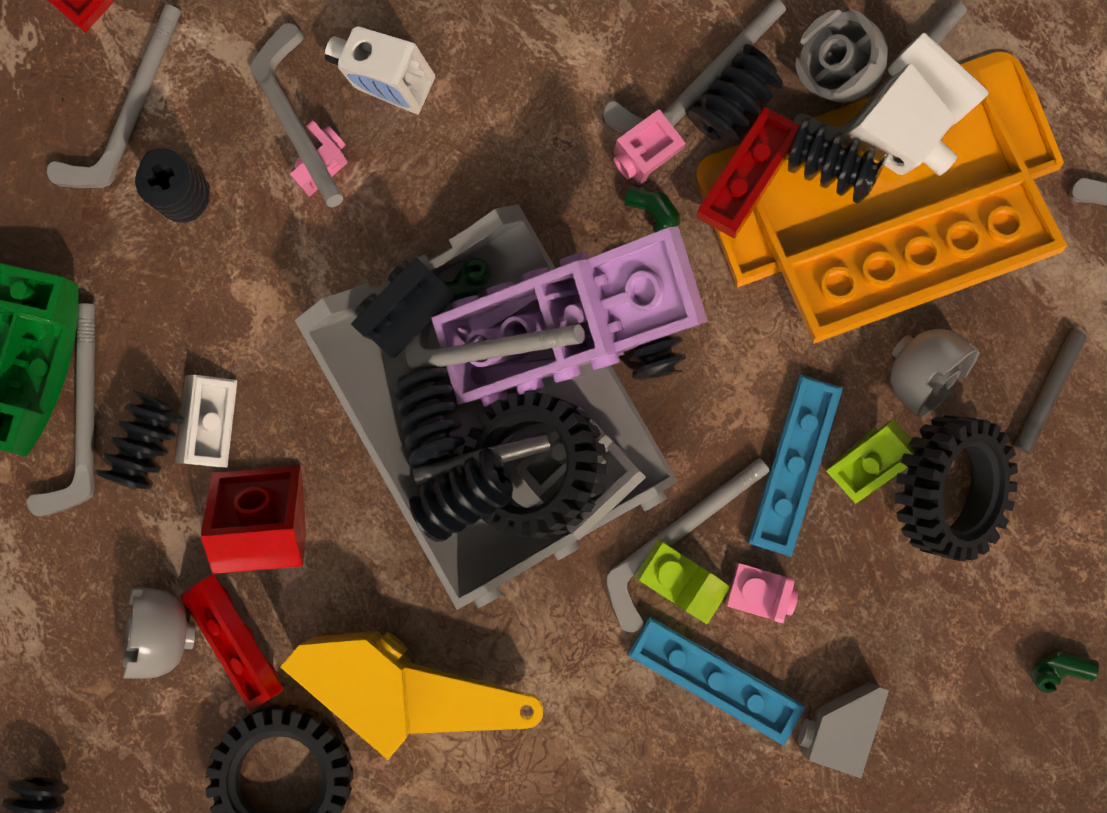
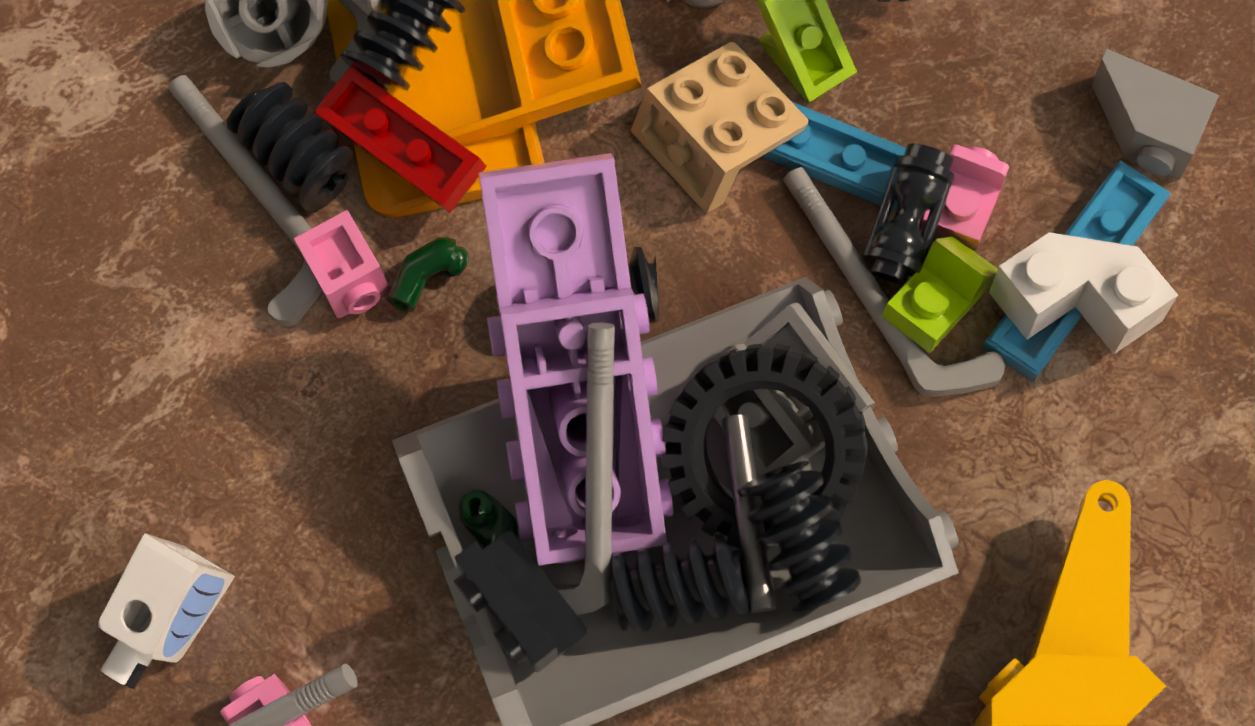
camera: 75 degrees left, 15 degrees down
(695, 703) = (1104, 280): none -> white brick
(760, 557) = (918, 184): none -> black piece
(796, 404) = (714, 122): none -> tan bracket

